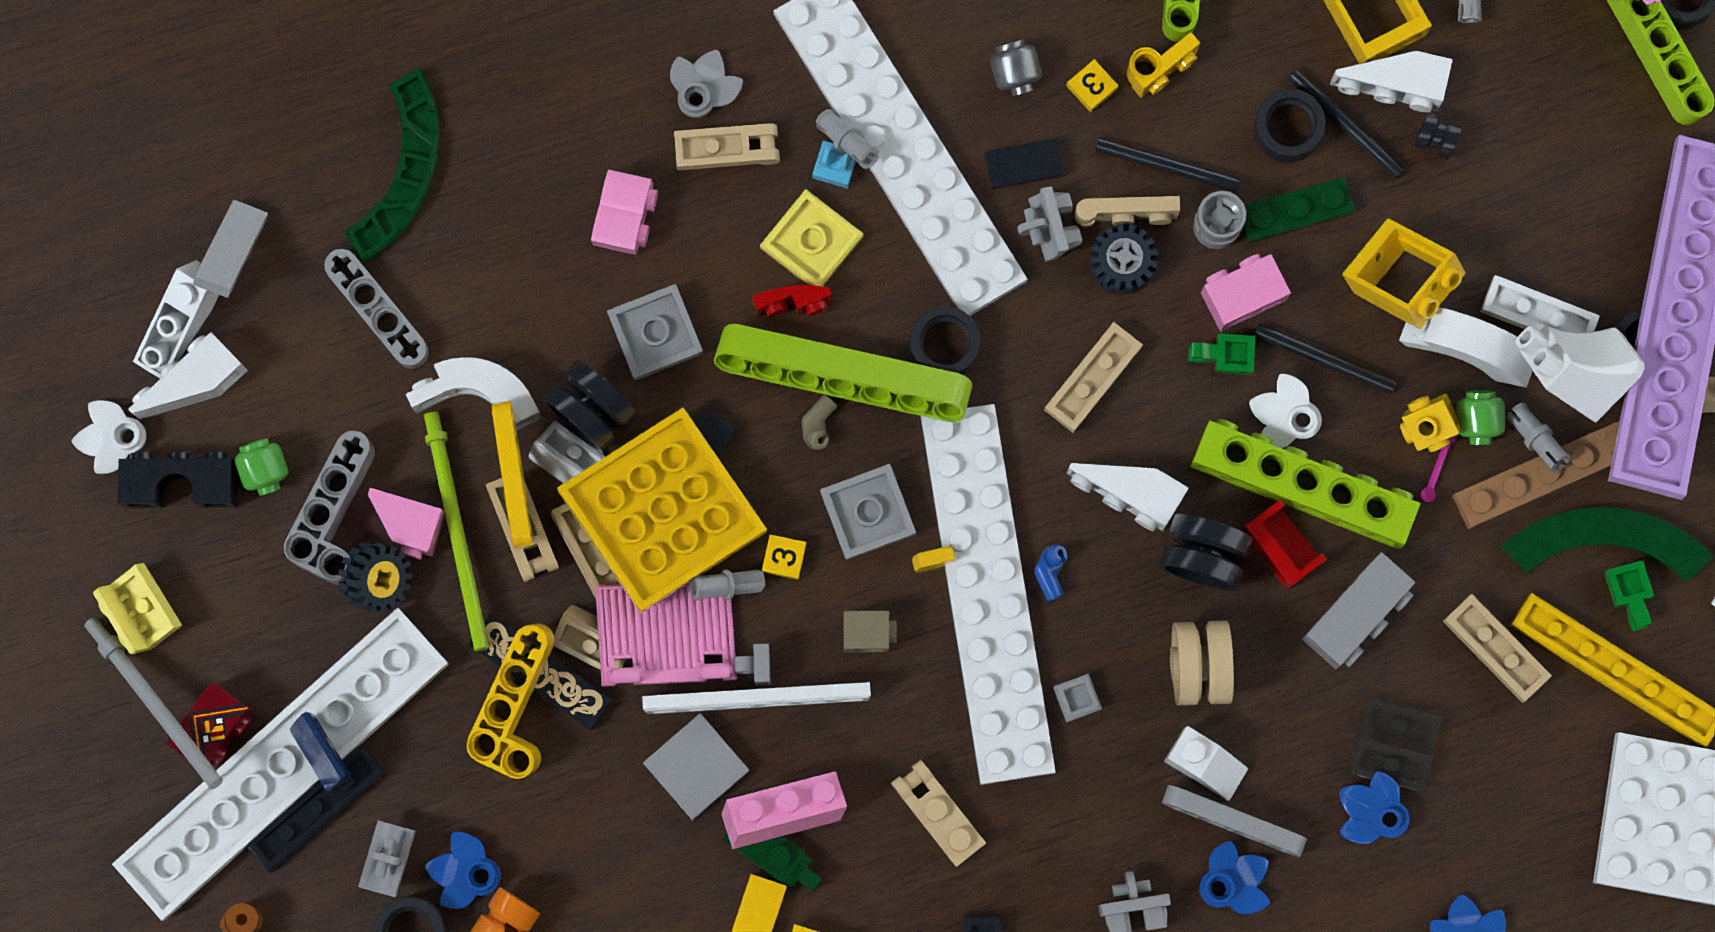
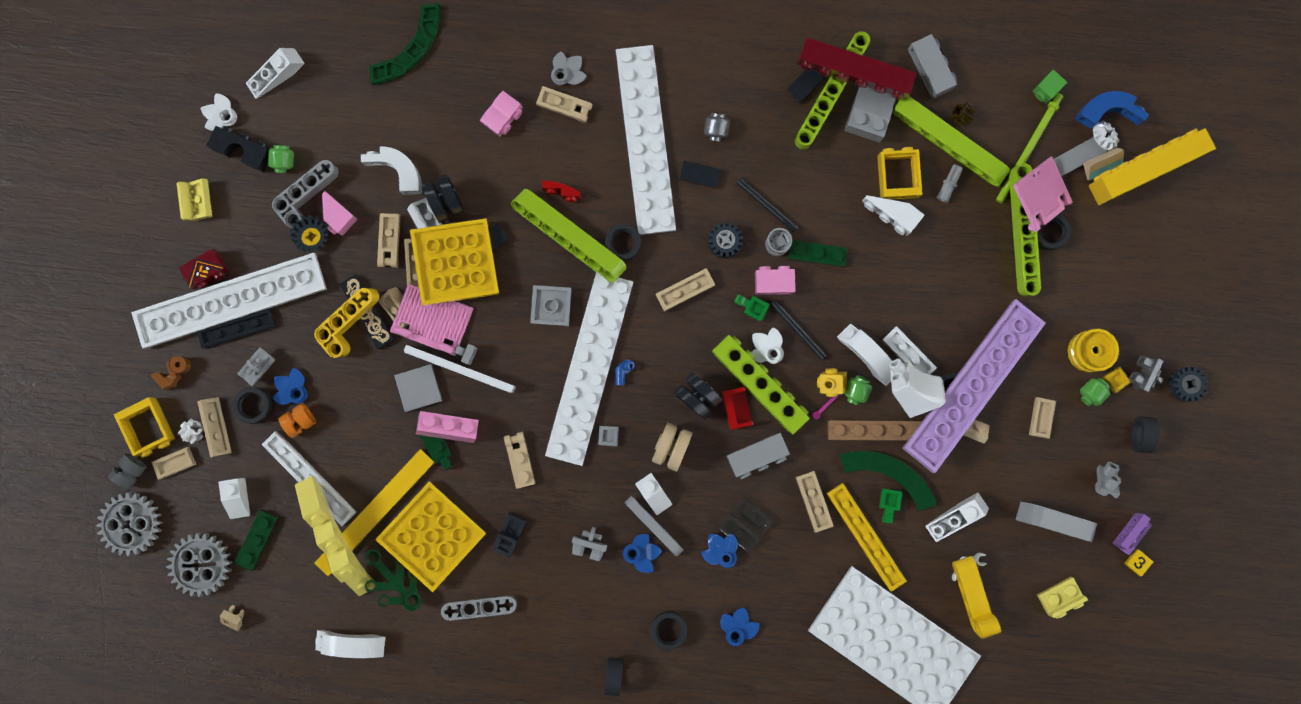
camera: 25 degrees right, 5 degrees up
(113, 652) = (175, 215): light grey bar -> none
(199, 376) = (272, 103): white slope -> none
(230, 248) = (310, 49): light grey tile -> none
(319, 751) = (248, 303): dark blue slope -> none
(374, 310) = (364, 109): light grey beam -> none
(436, 439) = (368, 181): lime bar -> none
(512, 474) = (392, 214): yellow beam -> none
(655, 332) = (491, 177): light grey plate -> none
(727, 584) = (470, 310): light grey axle -> none
(784, 557) = (503, 309): yellow tile -> none
(811, 240) = (584, 166): light yellow tile -> none
(814, 423) = (545, 254): dark tan arm -> none
(833, 166) = (611, 135): medium azure tile -> none
(847, 139) = (621, 125): light grey pin -> none
(868, 631) = (525, 361): dark tan brick -> none
(933, 559) = (570, 341): yellow tile -> none
(1045, 224) = (695, 207): light grey hips -> none
(1092, 85) = (749, 151): yellow tile -> none
(1126, 210) = (736, 218): tan plate -> none
(1139, 490) = (683, 354): white slope -> none
(1179, 57) = (795, 156): yellow plate -> none
(1294, 98) = (844, 203): black tyre -> none
(1348, 125) = (860, 223): black bar -> none
(1389, 244) = (852, 290): yellow window -> none
(1437, 135) = (901, 248): black wheel -> none
(1538, 437) = (880, 412): light grey pin -> none

